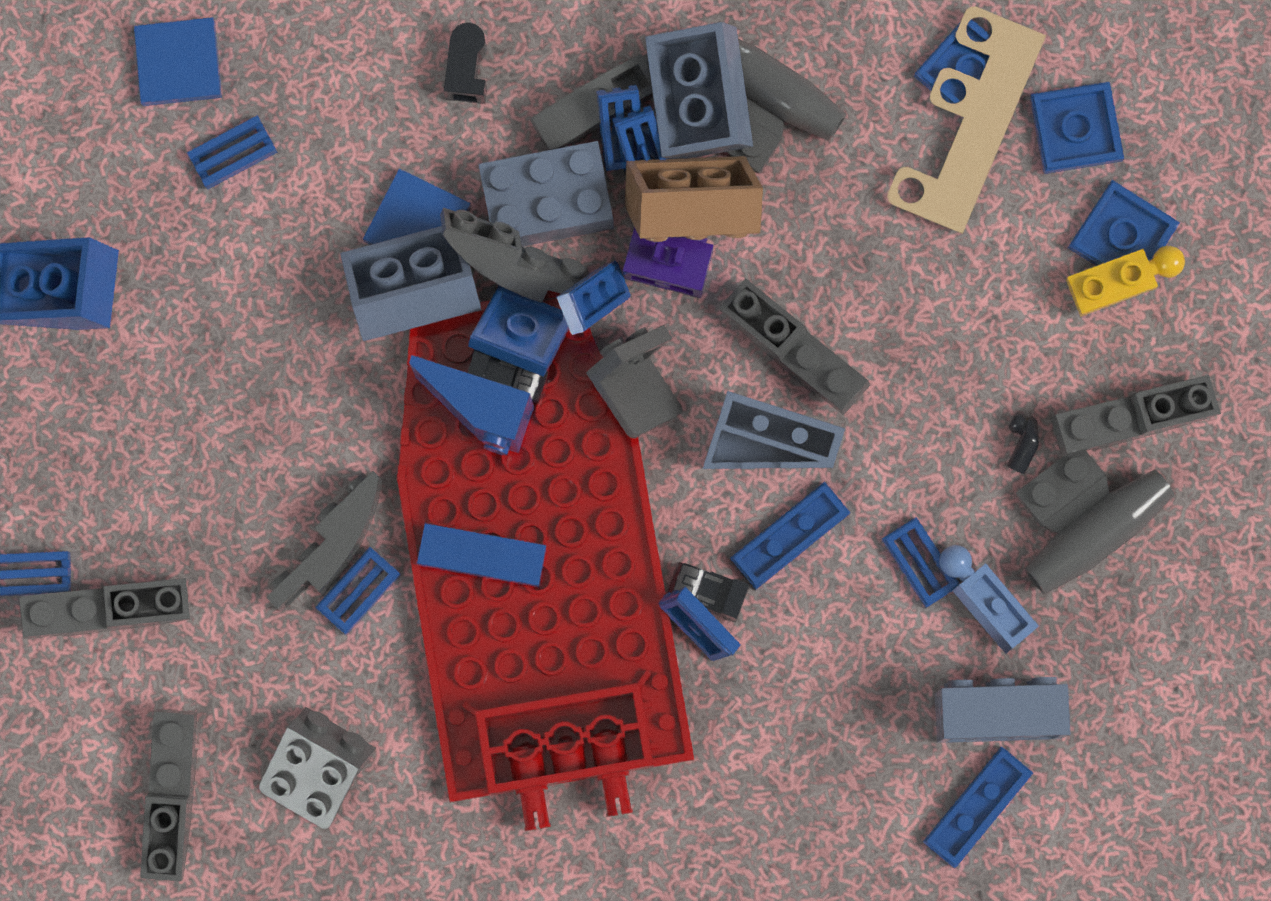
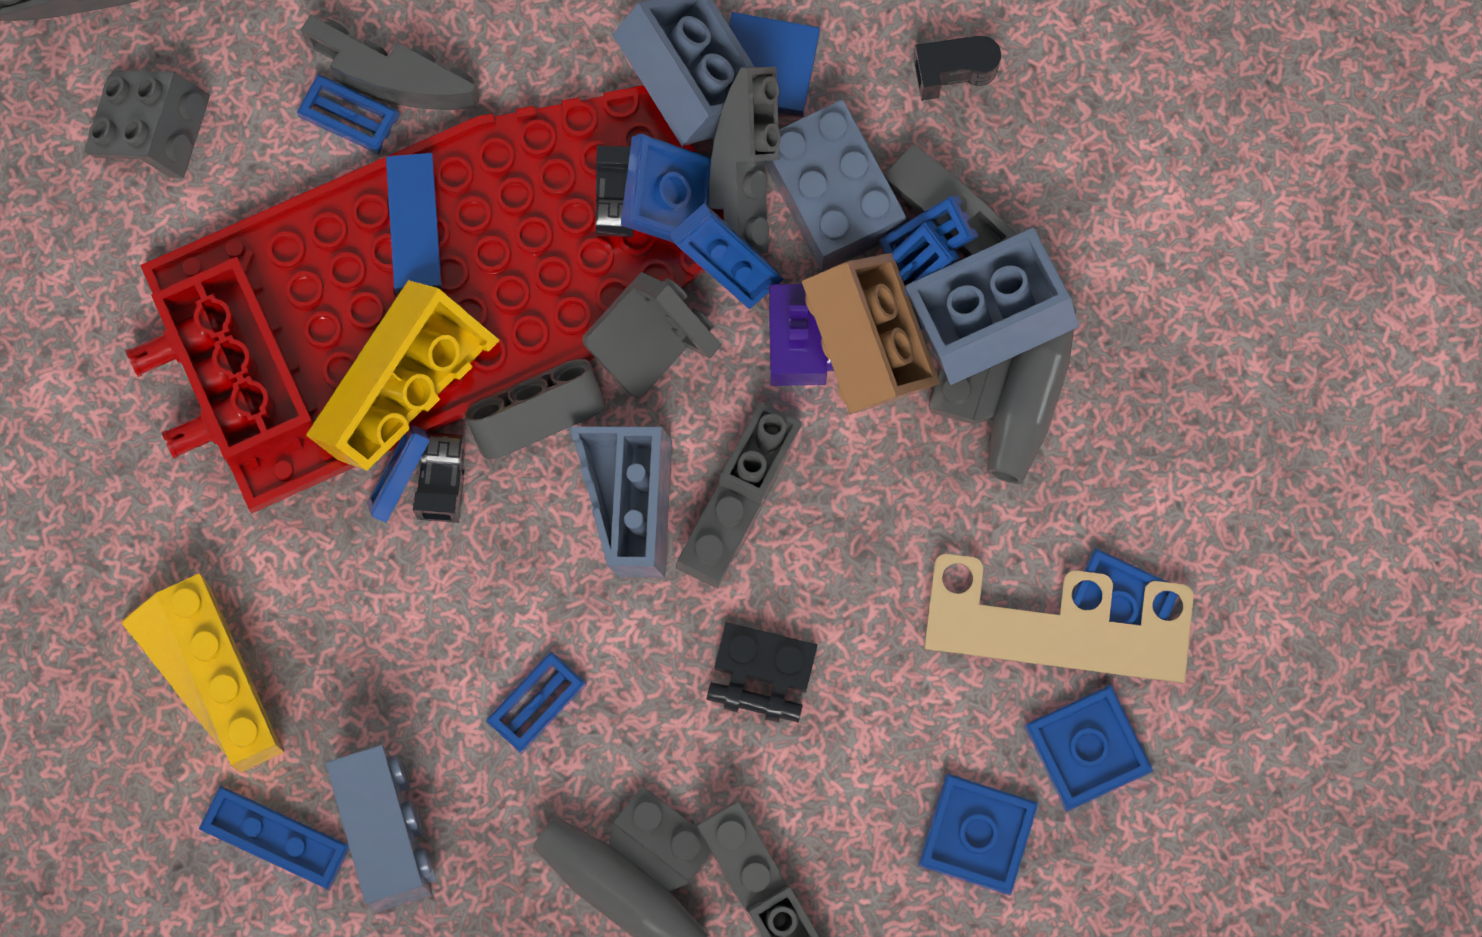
camera: 70 degrees right, 5 degrees down
(487, 408) = (566, 169): blue slope -> none
(619, 600) = (398, 374): none -> yellow wedge
(673, 496) = (535, 409): none -> dark grey beam
(790, 536) = (528, 551): blue tile -> none
(813, 832) = (198, 657): none -> yellow wedge
(934, 364) = (766, 659): none -> black plate
(987, 599) = (511, 785): medium blue plate -> none
(1028, 441) = (703, 784): black arm -> none
(1123, 278) = (923, 843): yellow plate -> none

